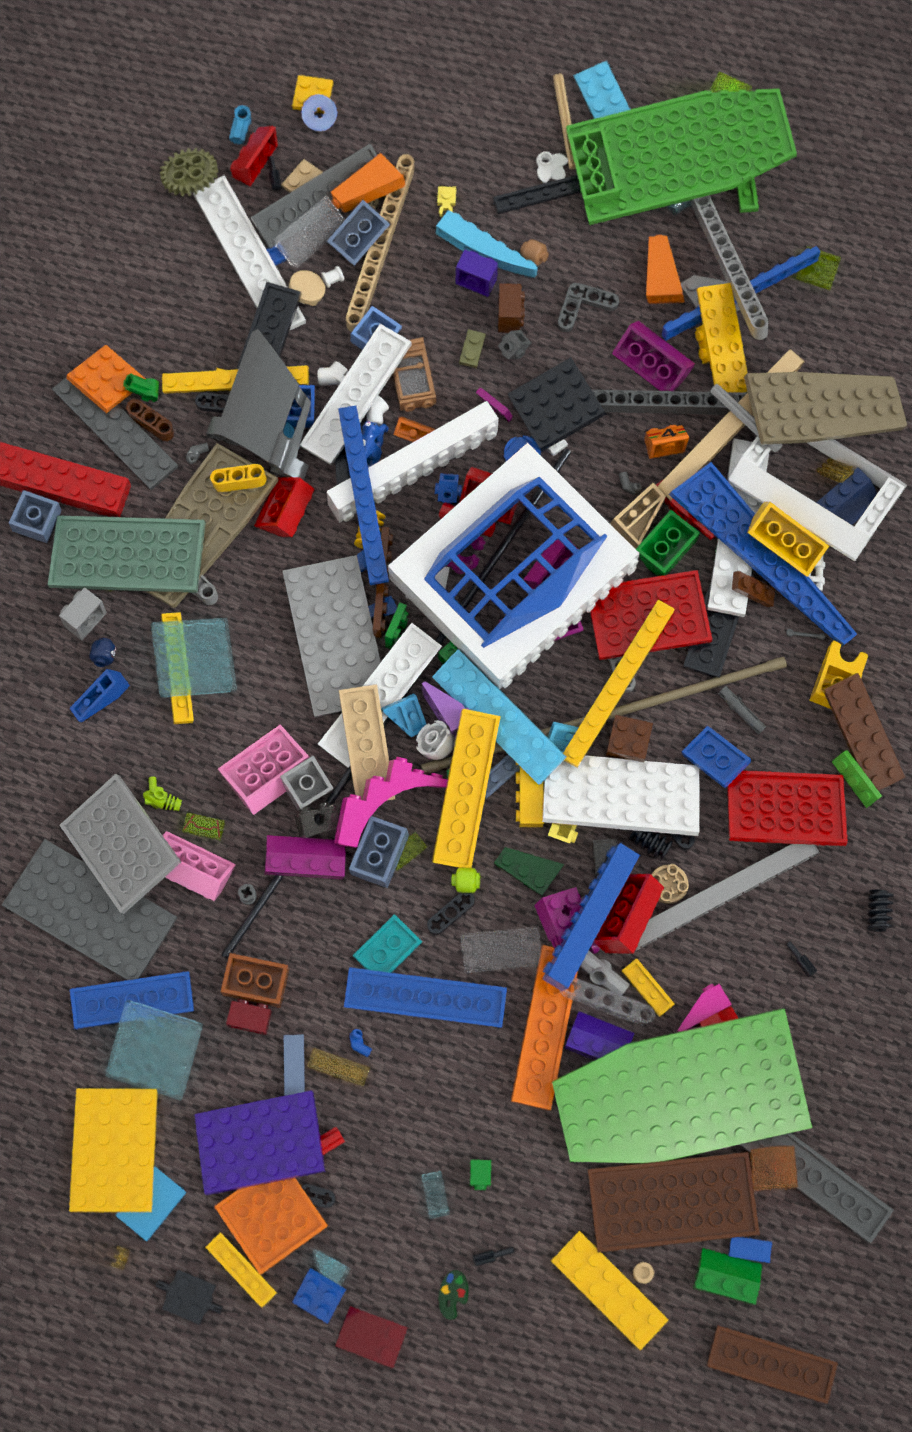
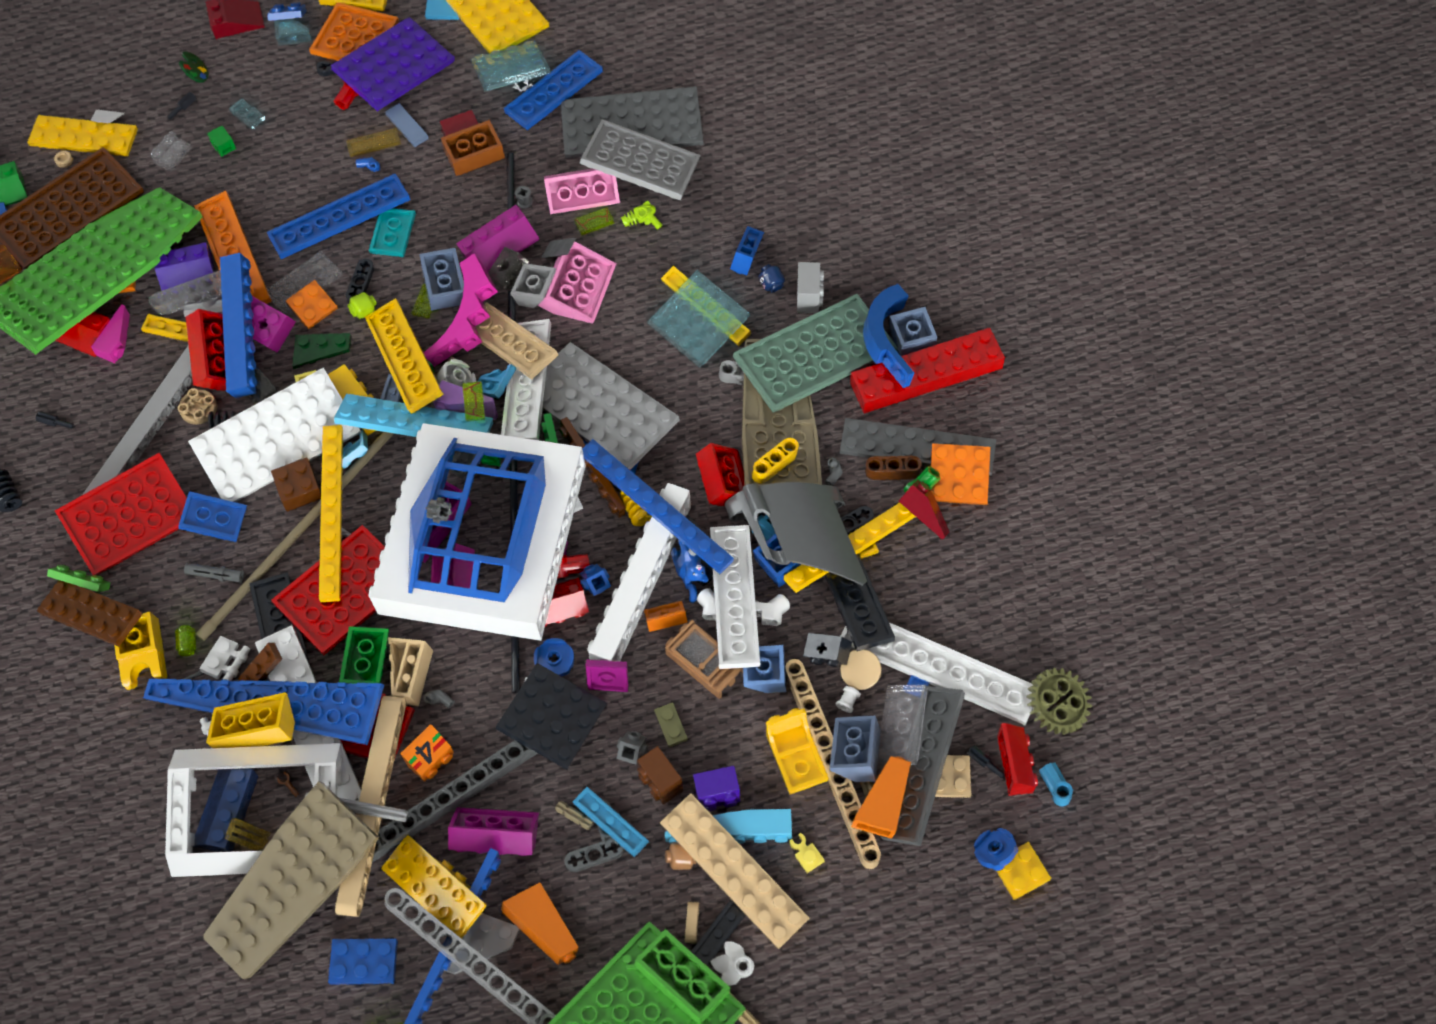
camera: 150 degrees right, 10 degrees down
(67, 529) = (874, 336): none -> blue arch
(158, 368) = (923, 505): none -> dark red slope
(259, 805) = (558, 247): none -> dark grey sticker
(319, 321) = (827, 649): none -> brick
(400, 264) = (795, 751): none -> yellow bracket
(440, 687) = (473, 401): none -> clear neon green tile
(506, 215) = (734, 870): none -> tan plate
(509, 917) = (311, 304): none -> orange plate
(535, 1198) = (170, 151): none -> clear bracket
(543, 565) = (438, 510): none -> dark grey gear
(559, 207) = (692, 922): none -> tan beam
(567, 306) = (610, 821): none -> dark azure tile
(574, 1297) = (105, 116): none -> white sticker
(588, 333) = (574, 815): none -> dark tan axle
(778, 632) = (220, 656): none -> white plate
(797, 663) = (185, 640): none -> clear neon green brick
(802, 335) = (363, 961): none -> blue plate

